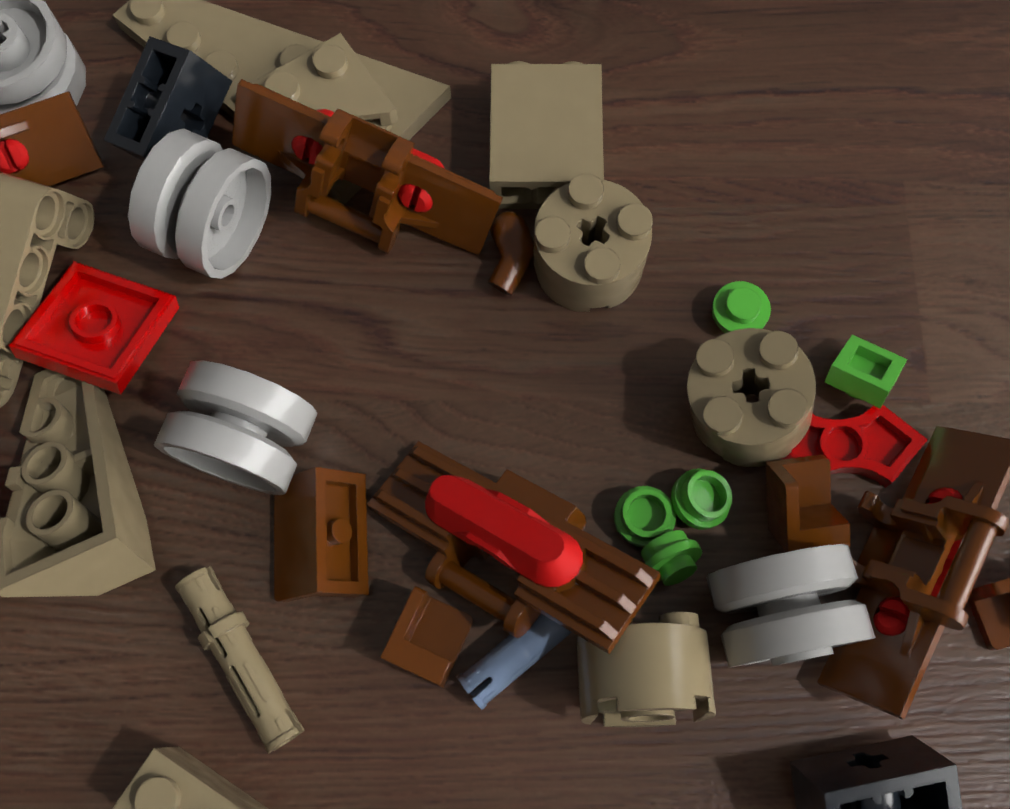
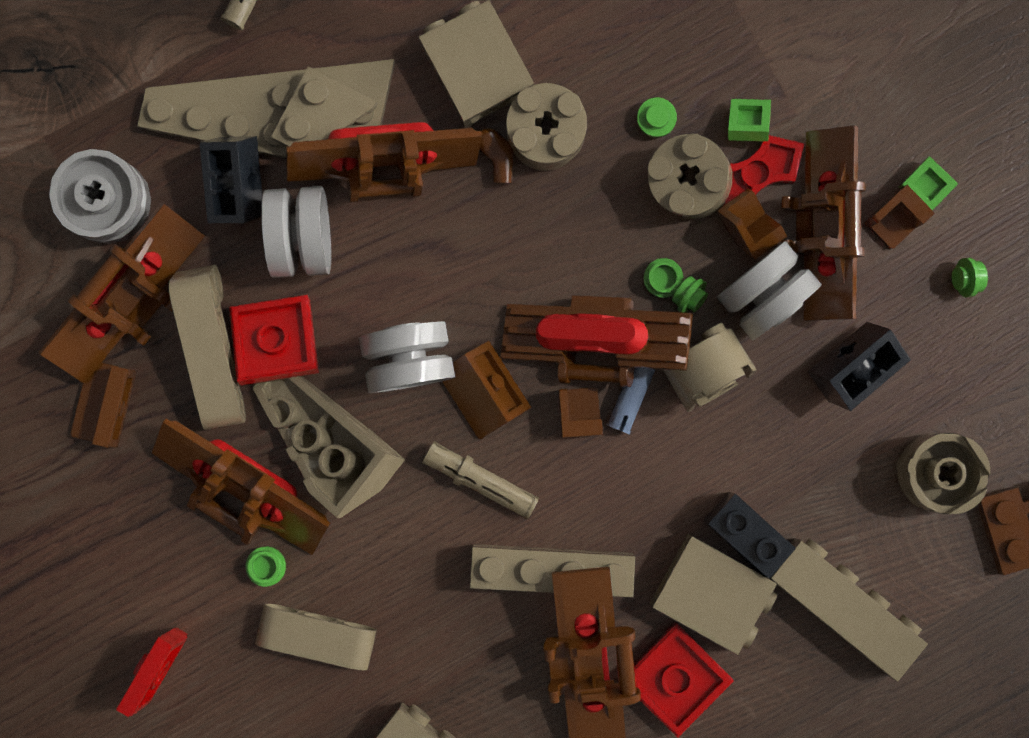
camera: 30 degrees left, 15 degrees up
(701, 498) = (690, 250): bright green plate -> none

